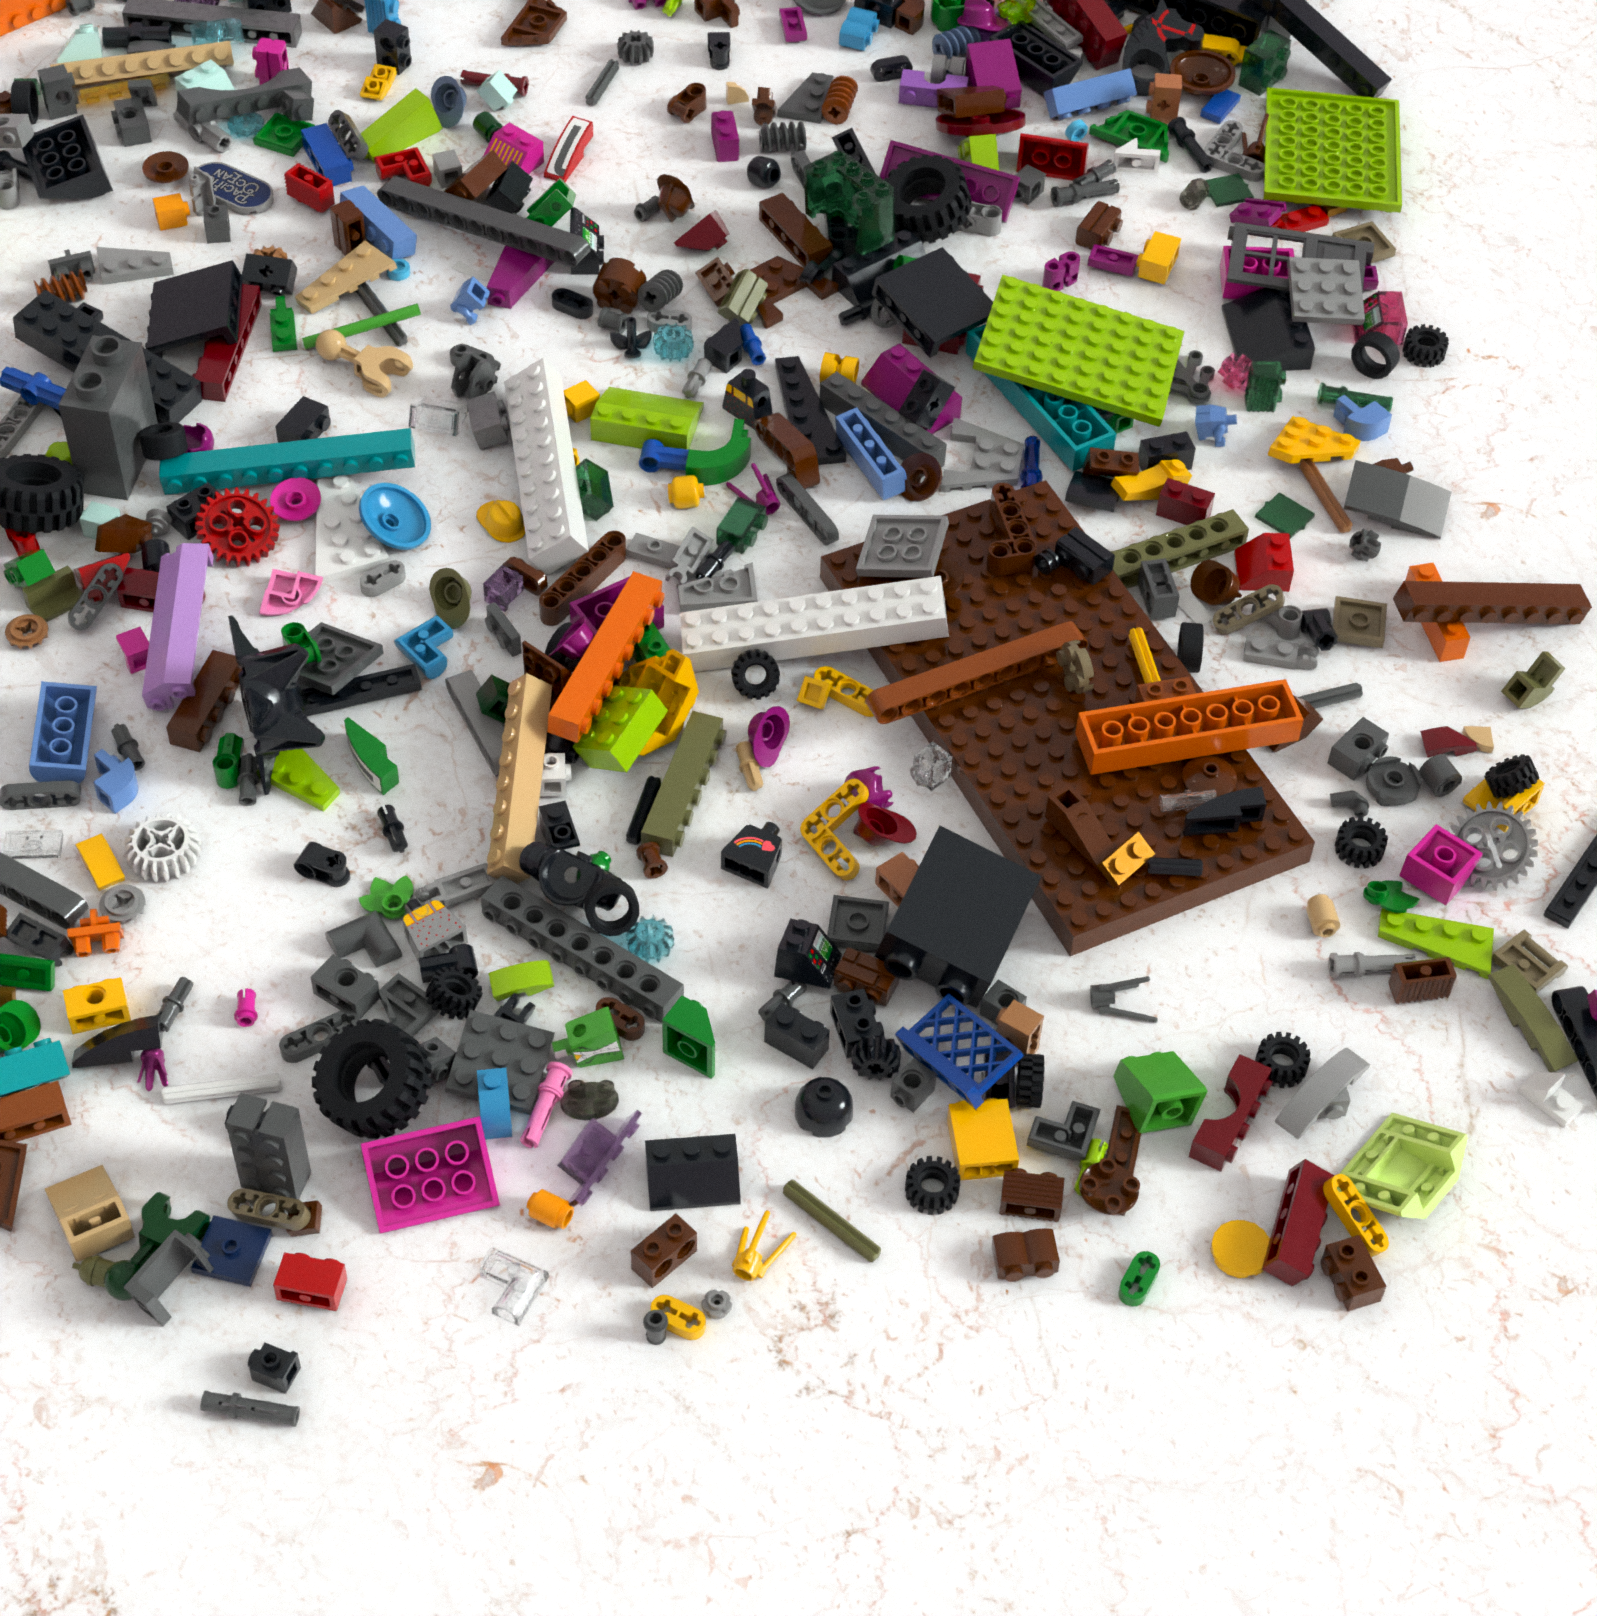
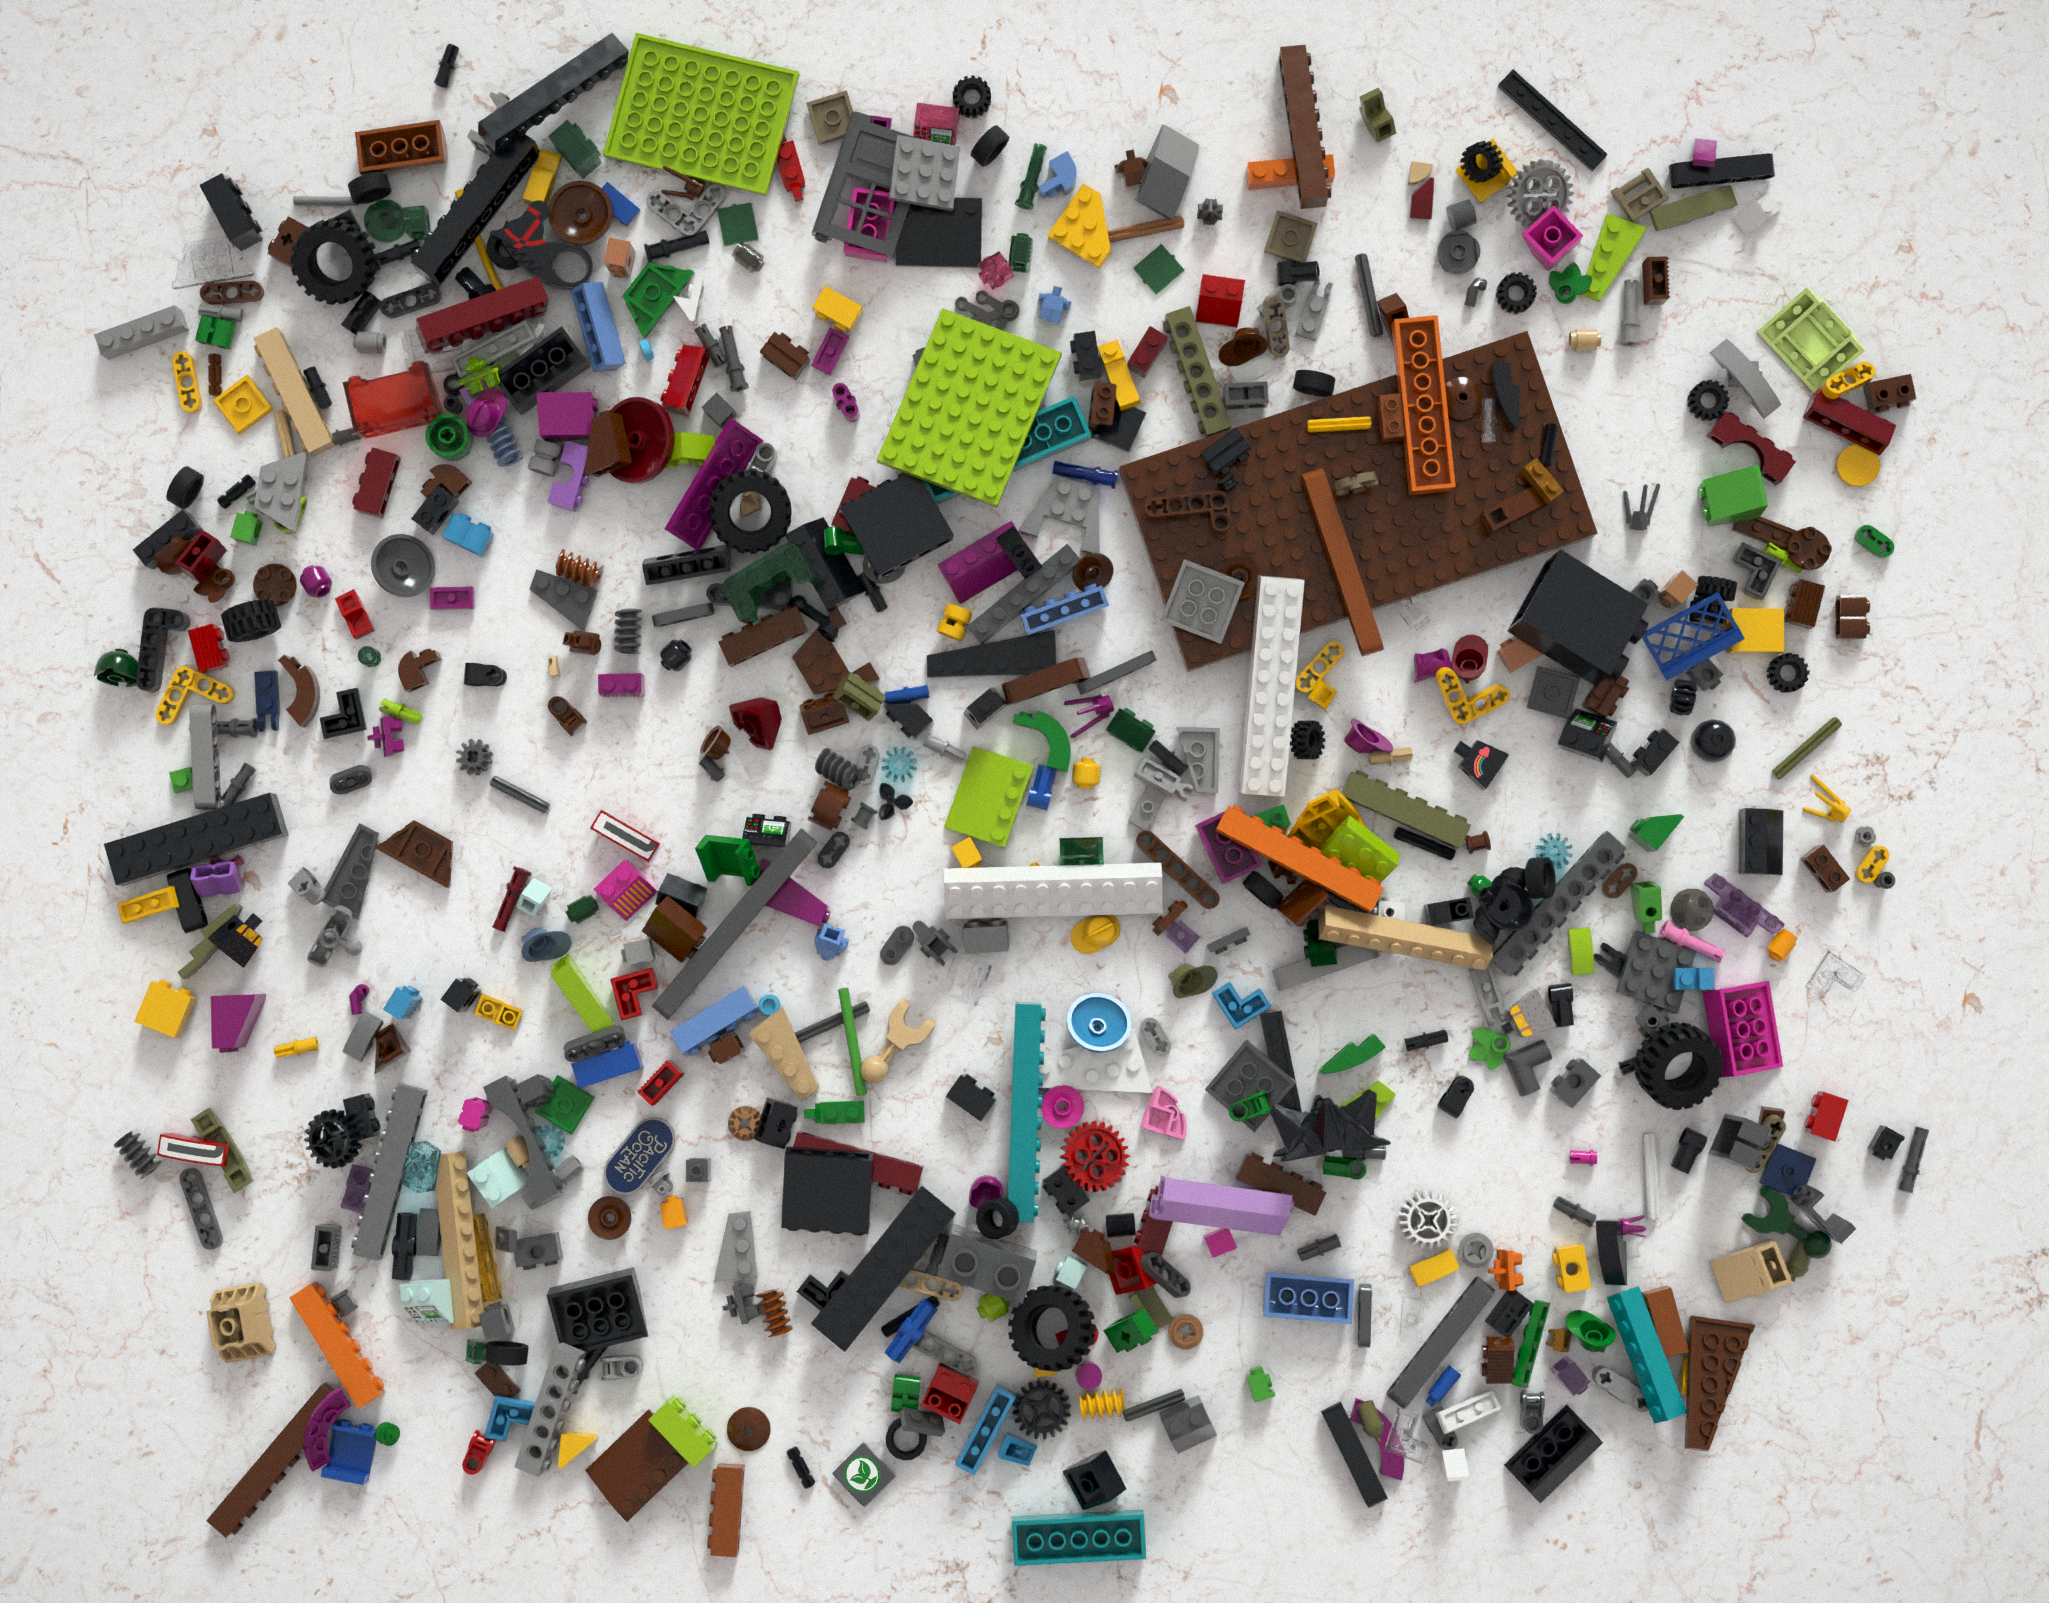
camera: 75 degrees left, 35 degrees up
(118, 781) = (1359, 1251): medium blue brick -> none
(314, 1047) = (1603, 1100): dark grey beam -> none
(406, 1004) = (1595, 1037): dark grey wing -> none
(453, 992) = (1596, 1013): black tyre -> none
(575, 640) = (1286, 885): magenta piece -> none
(854, 1018) = (1646, 707): black brick -> none
(890, 68) = (532, 511): black beam -> none
(1258, 212) = (781, 204): magenta plate -> none
(1358, 749) = (1426, 283): dark grey brick -> none

